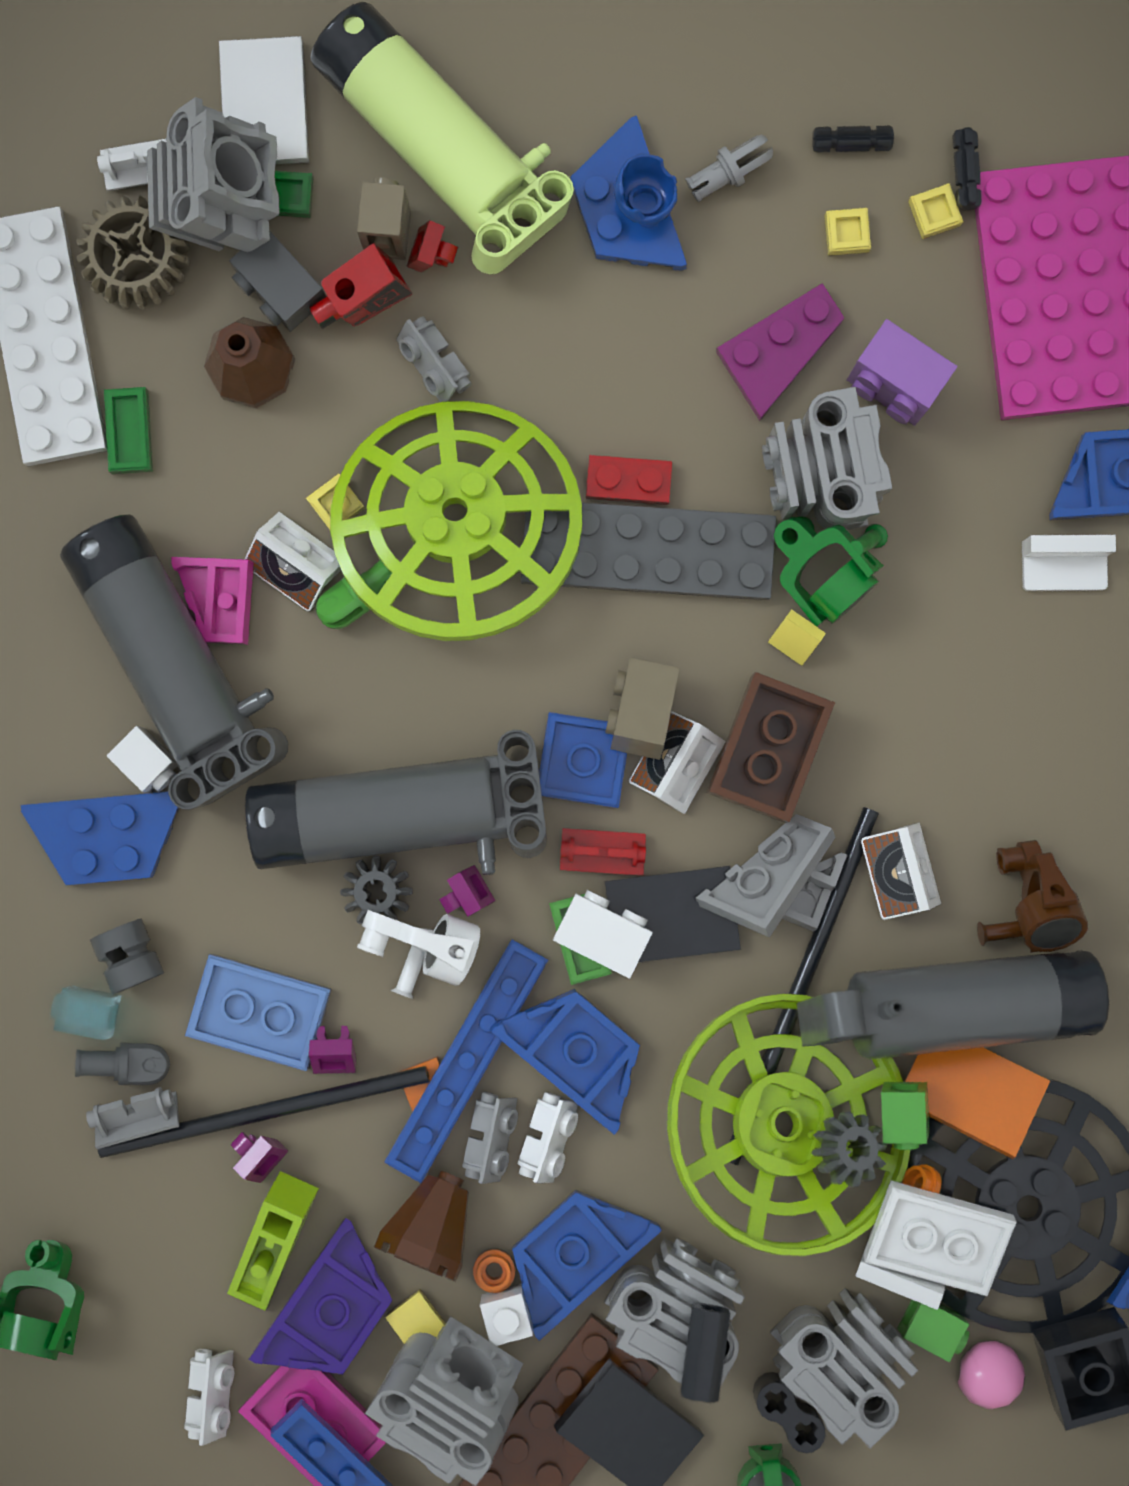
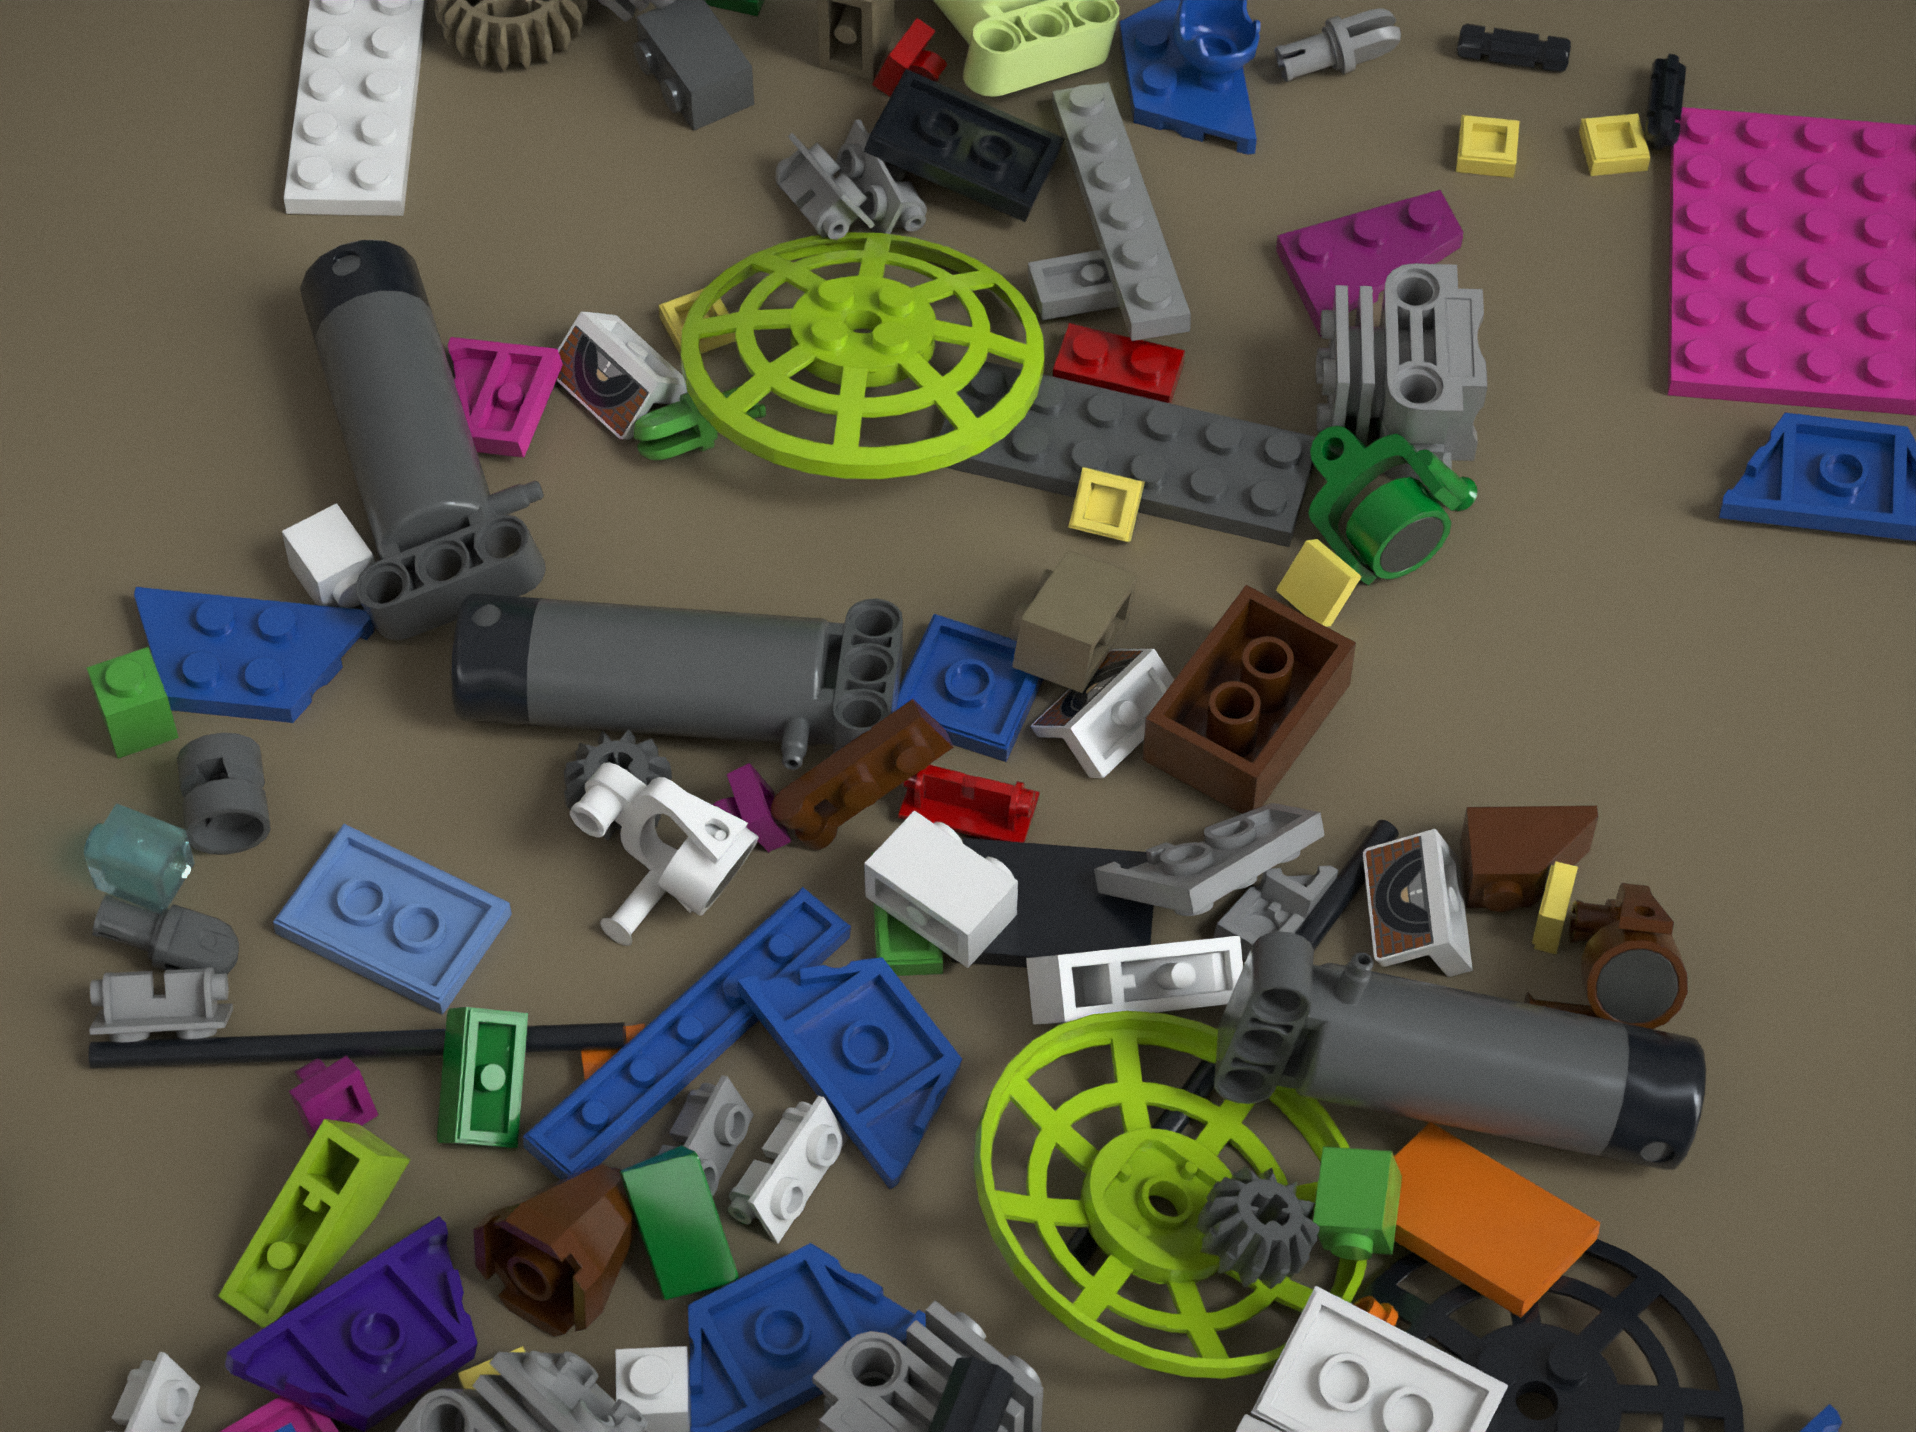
camera: 10 degrees right, 30 degrees down
(46, 900) = (132, 702): none -> bright green brick
(128, 430) = (438, 194): green tile -> none
(249, 362) = (626, 133): reddish brown cone -> none
(332, 1054) = (487, 979): magenta tile -> none
(347, 1123) = (482, 1077): none -> green slope
(372, 282) = (805, 79): red torso -> none
(384, 365) = (822, 198): none -> light grey hinge
(486, 320) = (964, 145): none -> black tile
(489, 1283) = (650, 1324): orange plate -> none
(494, 1204) = (679, 1223): none -> green slope
(533, 866) = (860, 774): none -> reddish brown plate
(598, 415) = (1071, 285): none -> light grey plate
(606, 354) = (1121, 212): none -> light grey plate
(645, 602) = (1106, 504): none -> light yellow tile
(733, 972) = (1134, 979): none -> white slope
(900, 373) = (1535, 288): medium lavender brick -> none
(960, 821) = (1512, 849): none -> reddish brown slope
(988, 854) = (1554, 907): none -> light yellow tile
(1066, 562) = (1736, 564): white panel -> none

